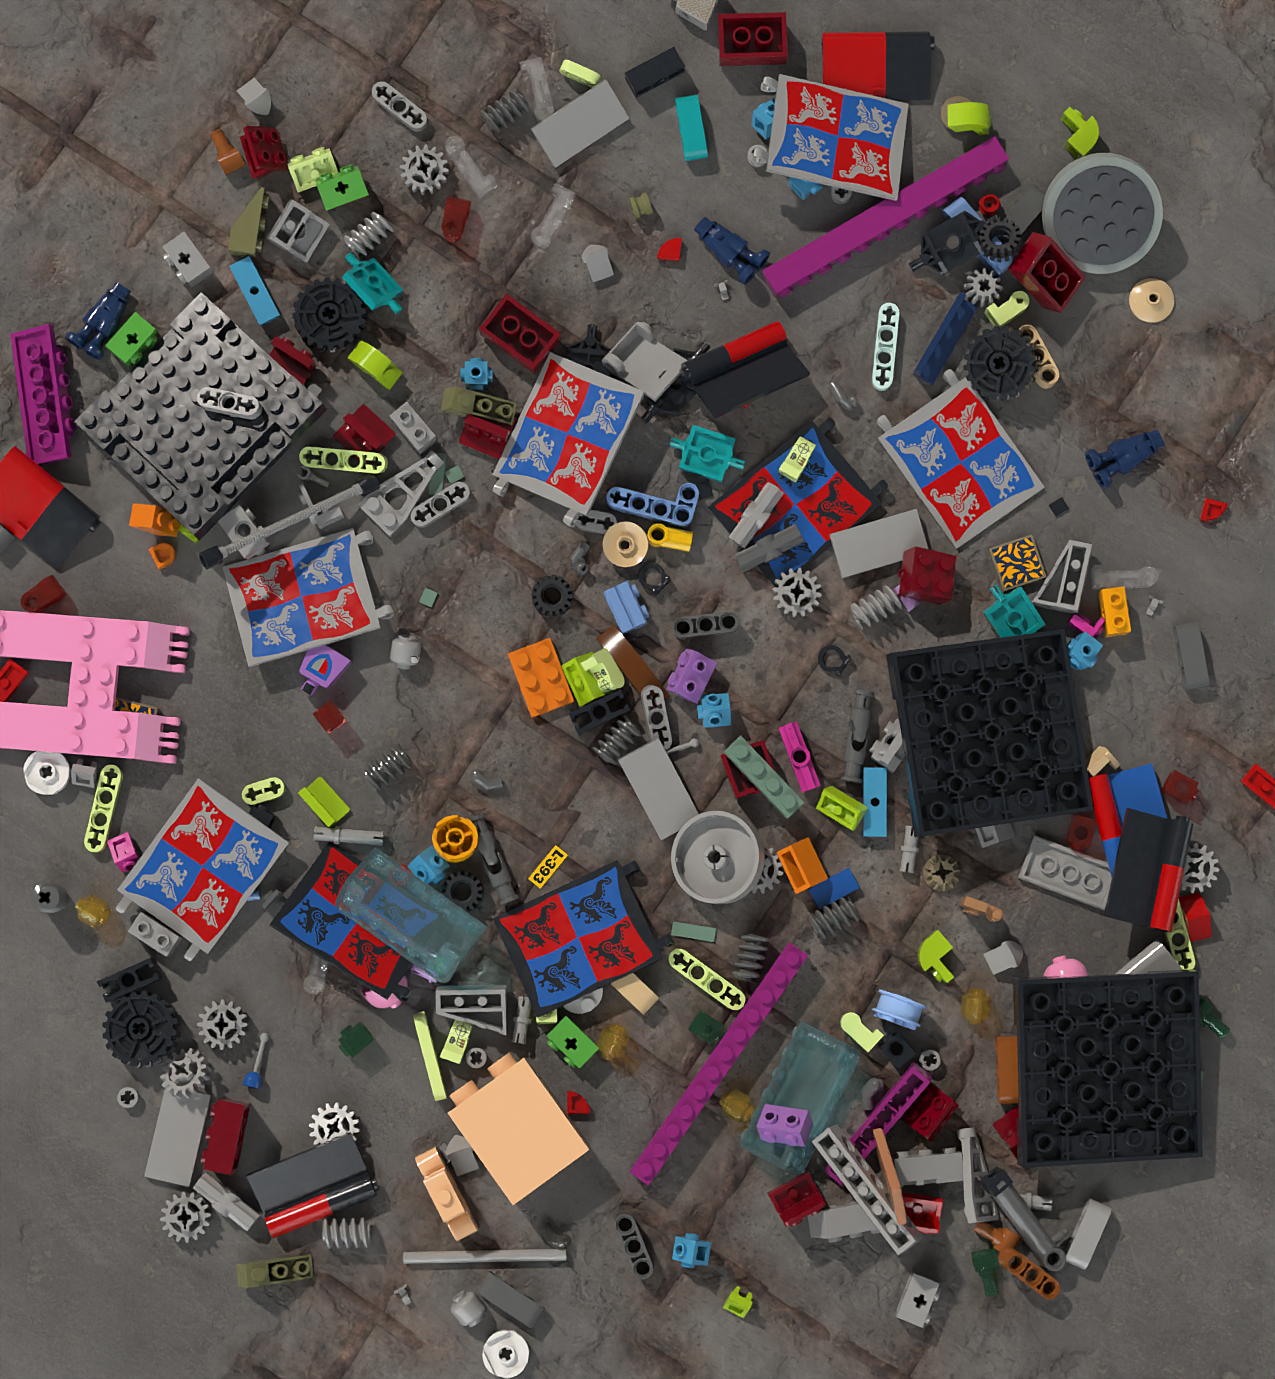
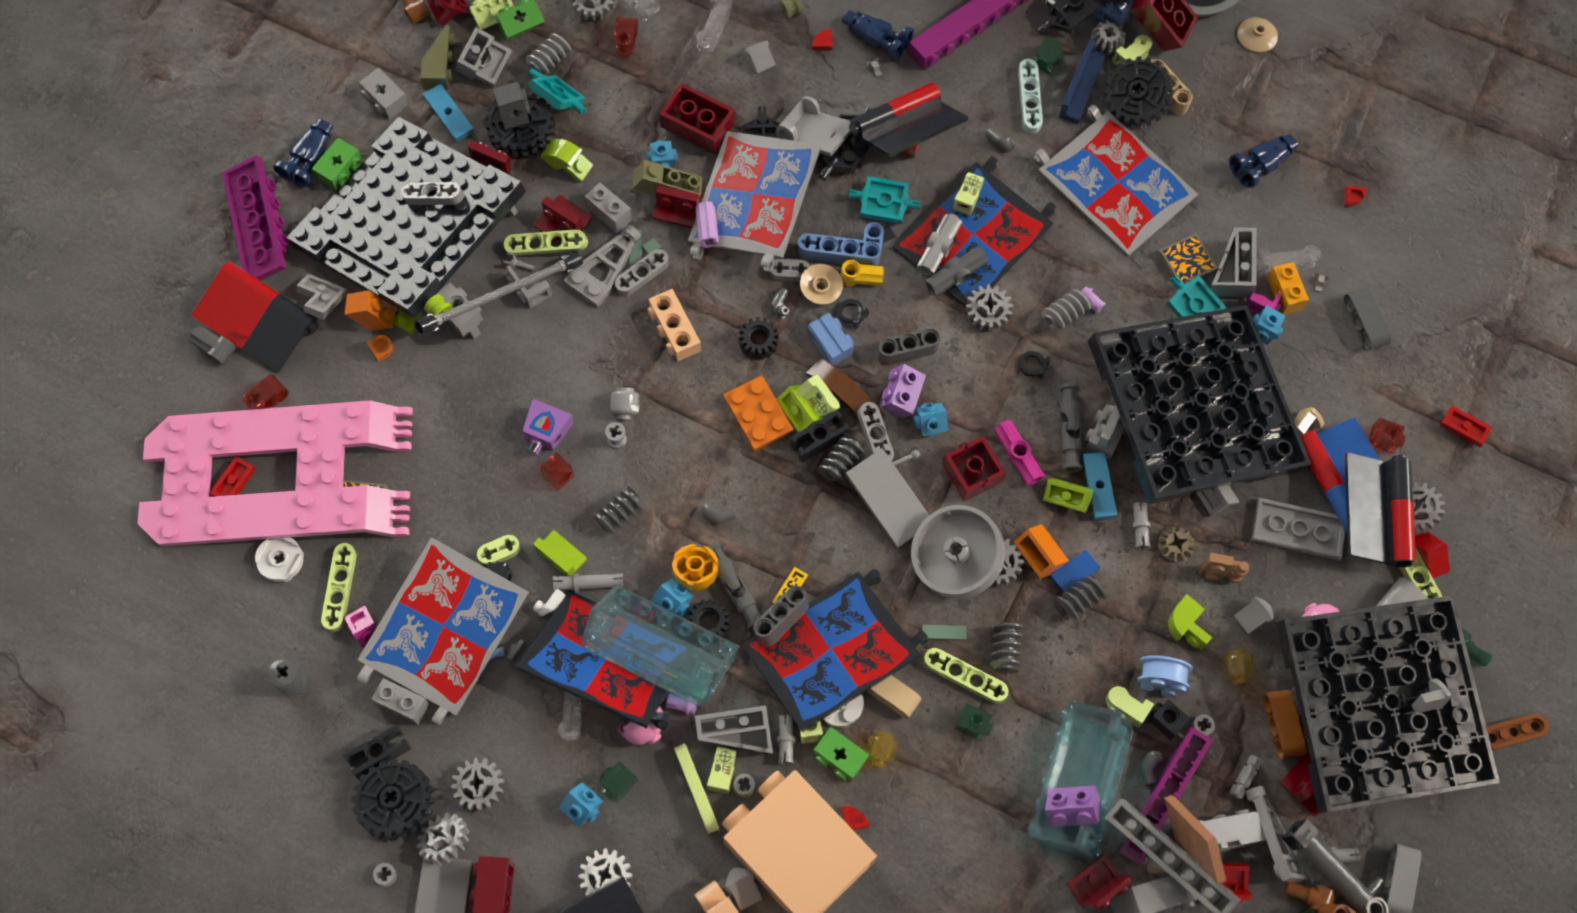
camera: 10 degrees left, 15 degrees down
(84, 775) = (317, 556): light grey tile -> none
(93, 911) = (334, 686): clear yellow head -> none
(110, 492) = (323, 295): none -> light grey plate
(225, 534) = (437, 305): none -> lime wheel
(254, 1079) = (515, 837): hinge -> none
(303, 597) = (520, 365): flag -> none
(308, 856) = (551, 605): none -> white arm
(318, 1058) = (581, 805): none -> dark azure brick
(322, 304) = (512, 105): none -> dark grey brick
(392, 677) = (612, 430): none -> light grey bush
(428, 597) = (640, 355): sand green window -> none
(469, 559) = (674, 315): none -> light nougat brick
(513, 463) = (707, 224): none -> lavender axle
(538, 887) = (780, 626): none -> dark grey beam
(718, 1063) = (991, 759): magenta brick -> none
(737, 1106) = (1019, 797): clear yellow head -> none
(763, 777) = (990, 468): sand green plate -> none
(877, 542) = (1057, 257): light grey tile -> none
(914, 300) = (1049, 55): none -> clear green brick
(927, 575) = (1109, 275): dark red brick -> none
(929, 1112) = (1215, 776): dark red bracket -> none
(960, 1115) = (1245, 777): none -> light grey axle
(1058, 506) = (1214, 210): black window -> none
(1089, 827) = (1308, 481): clear red brick -> none
(1155, 1073) = (1435, 699): none -> light grey tile
(1242, 1107) = (1521, 728): none -> dark orange plate

